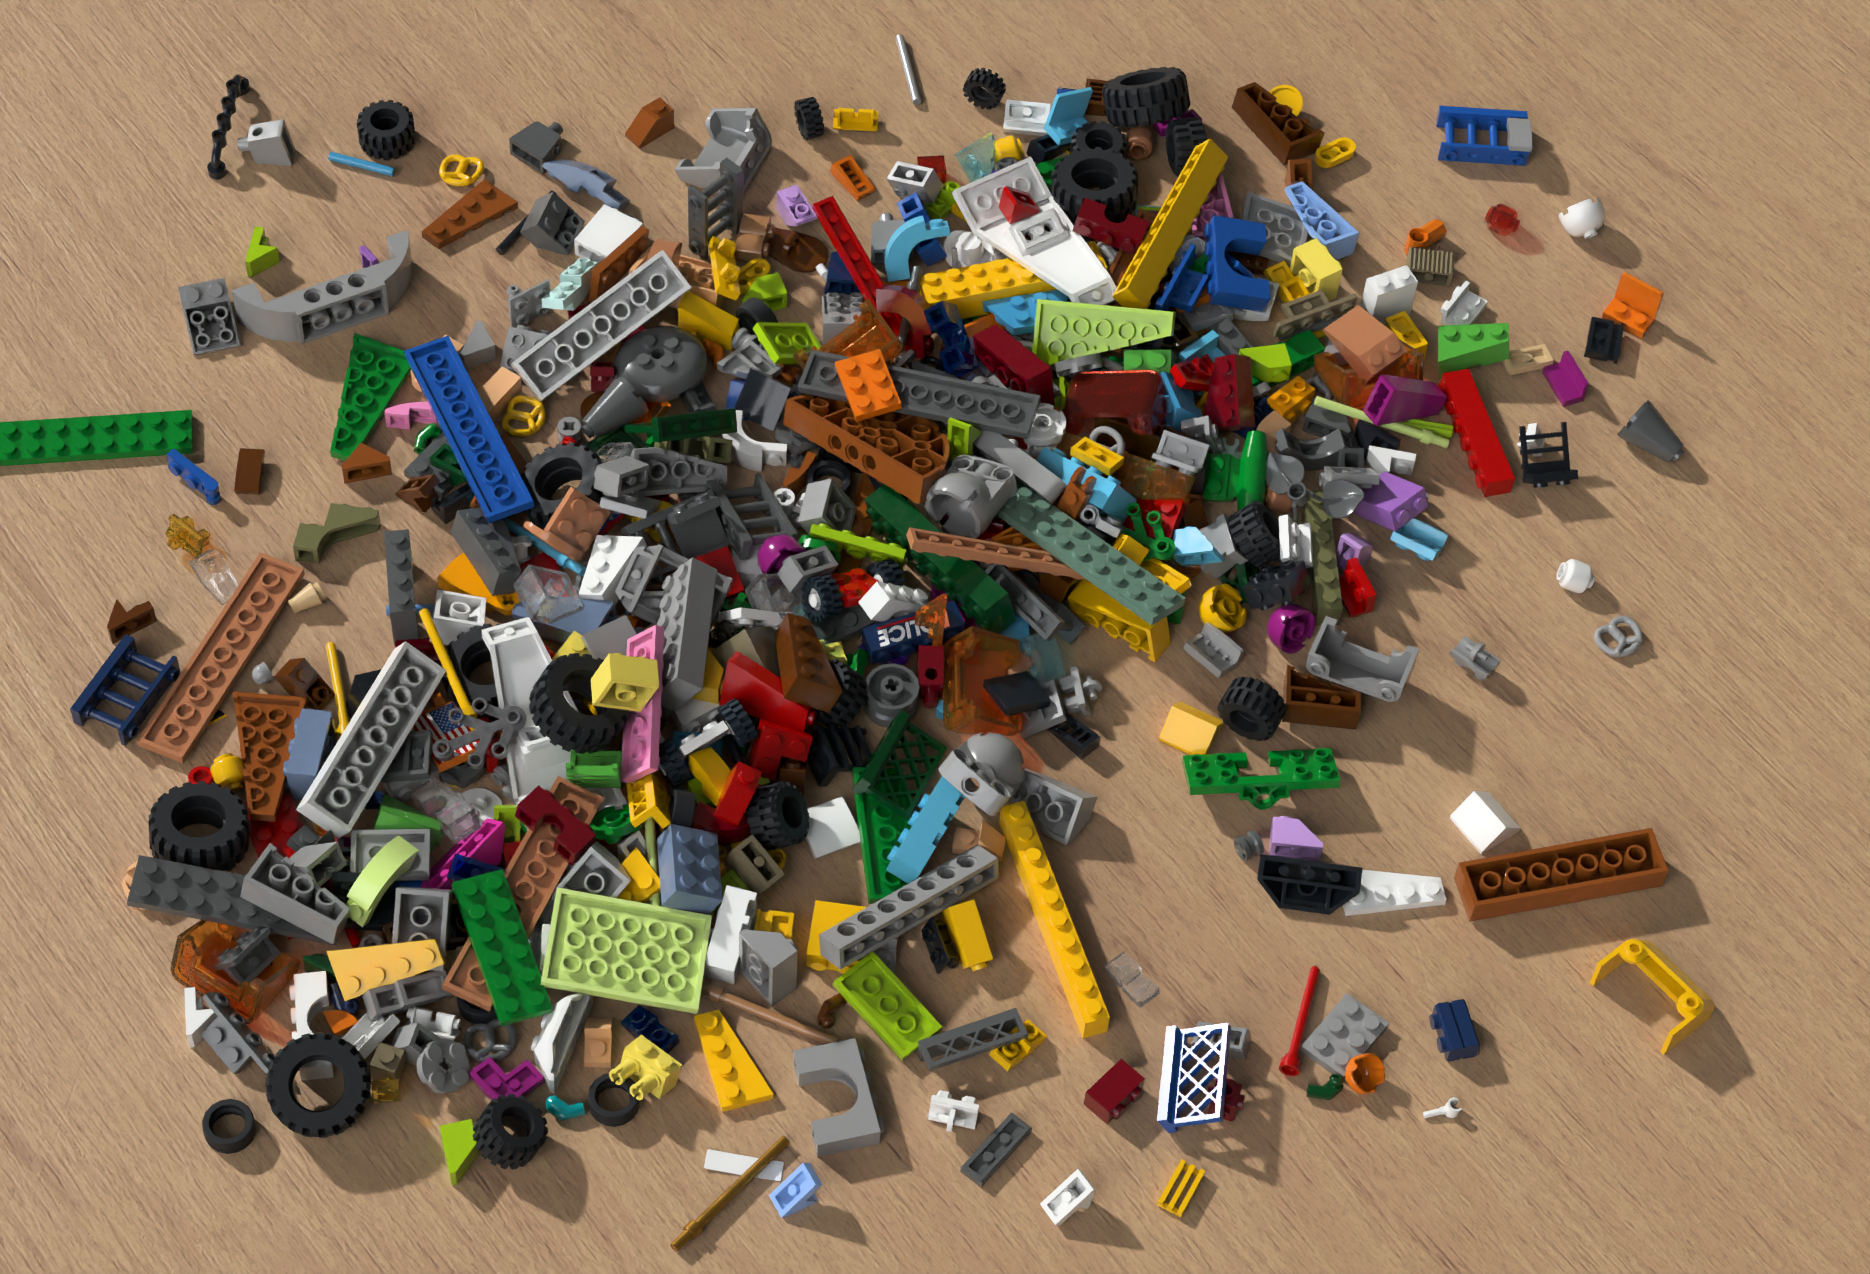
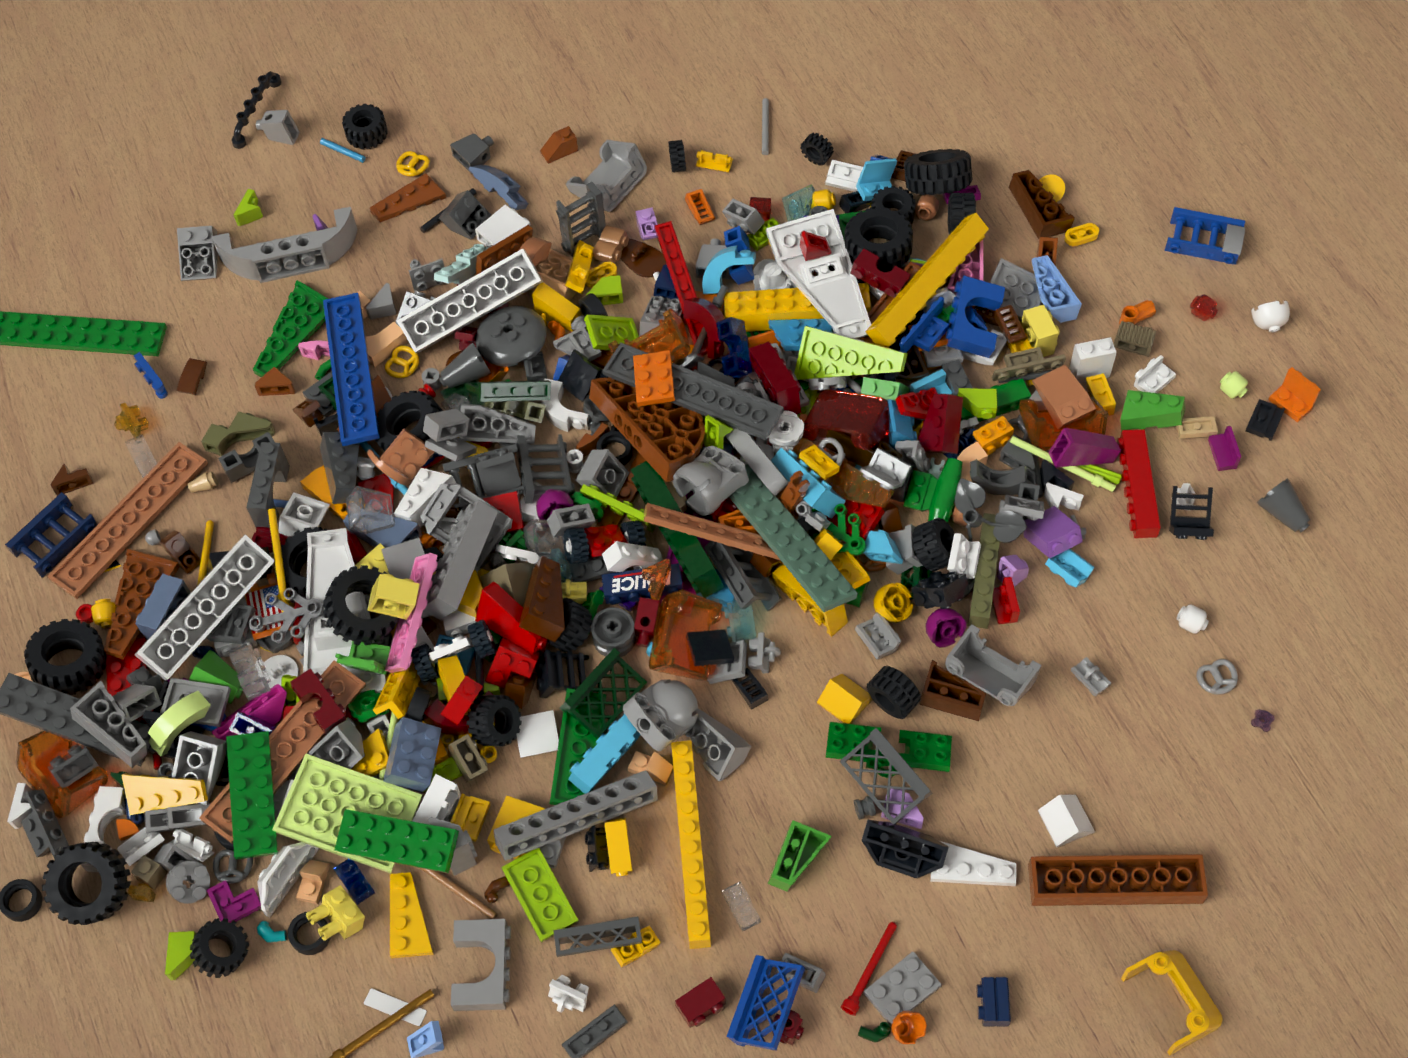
camera: 20 degrees right, 5 degrees up
(348, 570) = (240, 465): none -> dark grey arch
(705, 965) = (397, 841): none -> green plate
(1182, 907) = (796, 854): none -> bright green wedge
(1272, 256) = (1005, 314): none -> reddish brown slope
(1284, 785) = (898, 763): none -> dark grey fence
(1558, 304) = (1234, 384): none -> yellowish green head
(1683, 671) = (1266, 716): none -> clear purple plate

